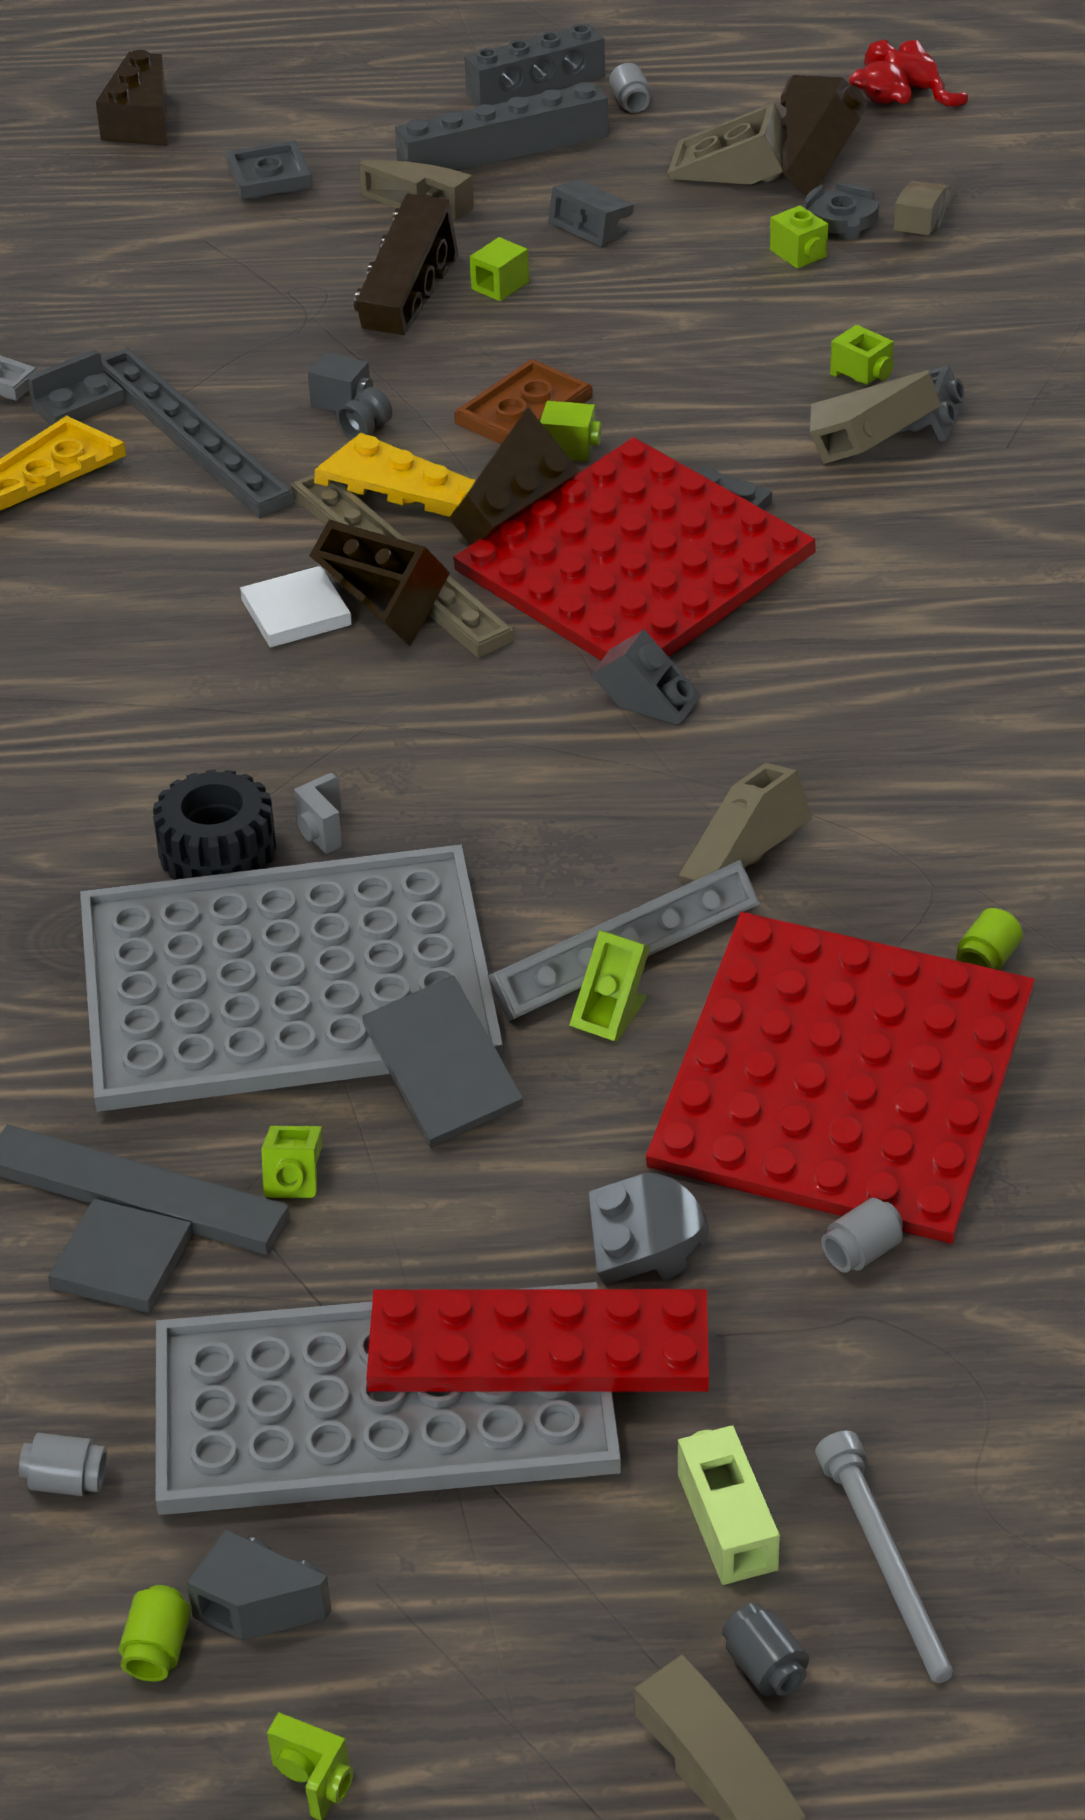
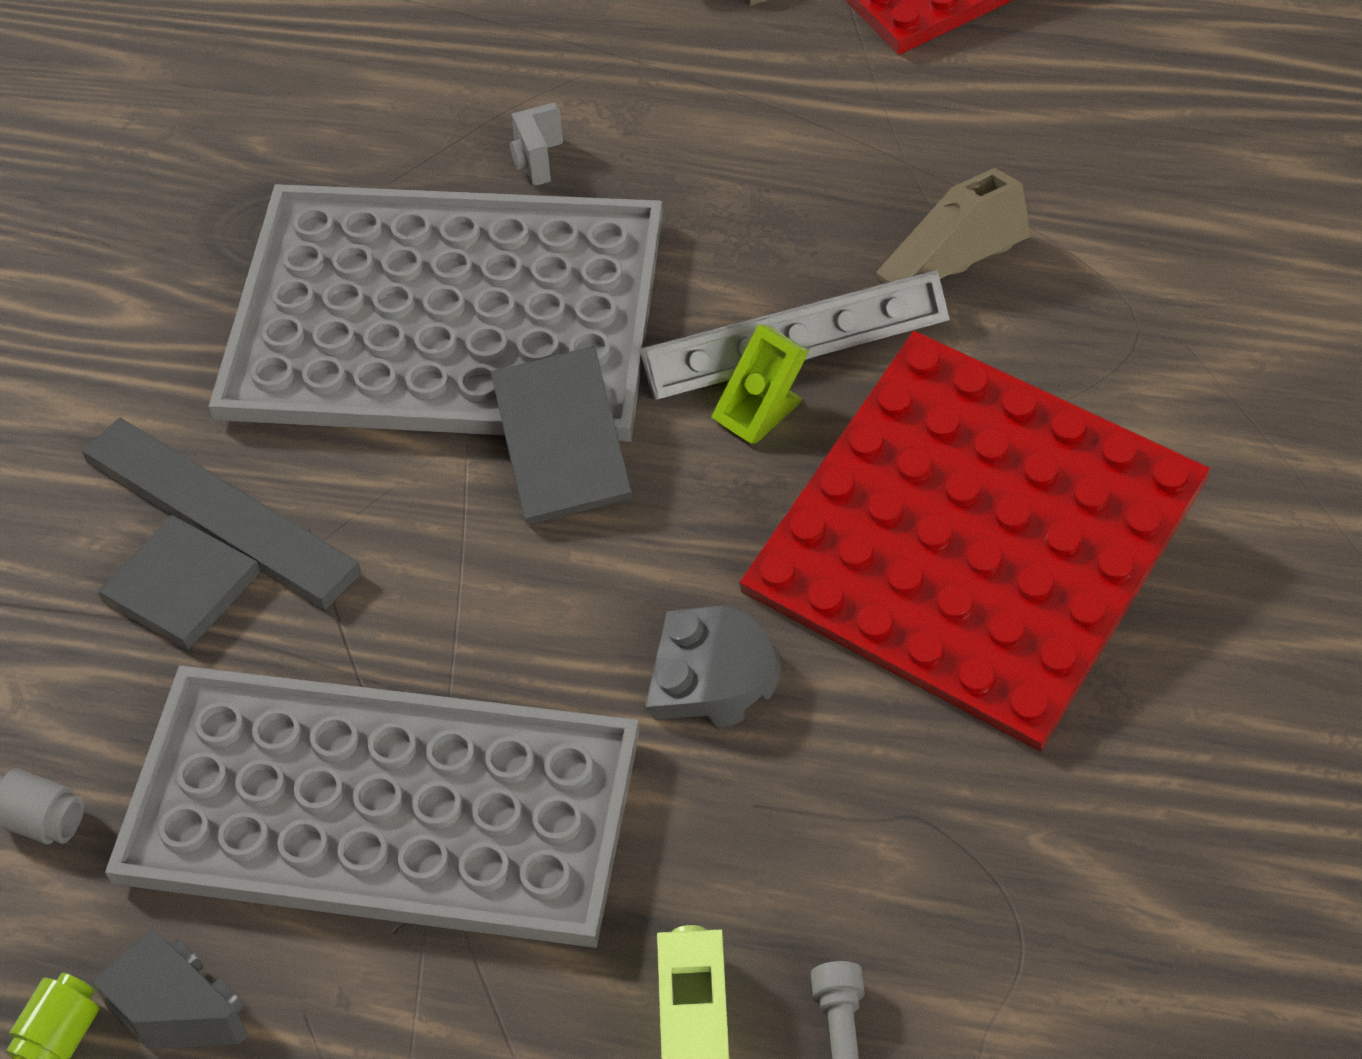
camera: 15 degrees right, 10 degrees up
(214, 825) = (424, 138): black tyre -> none
(291, 1161) = (376, 509): lime bracket -> none
(538, 1340) = (554, 778): red plate -> none
(646, 680) = (906, 57): dark grey slope -> none
(862, 1235) = (940, 725): light grey brick -> none
(990, 939) = (1179, 410): lime brick -> none

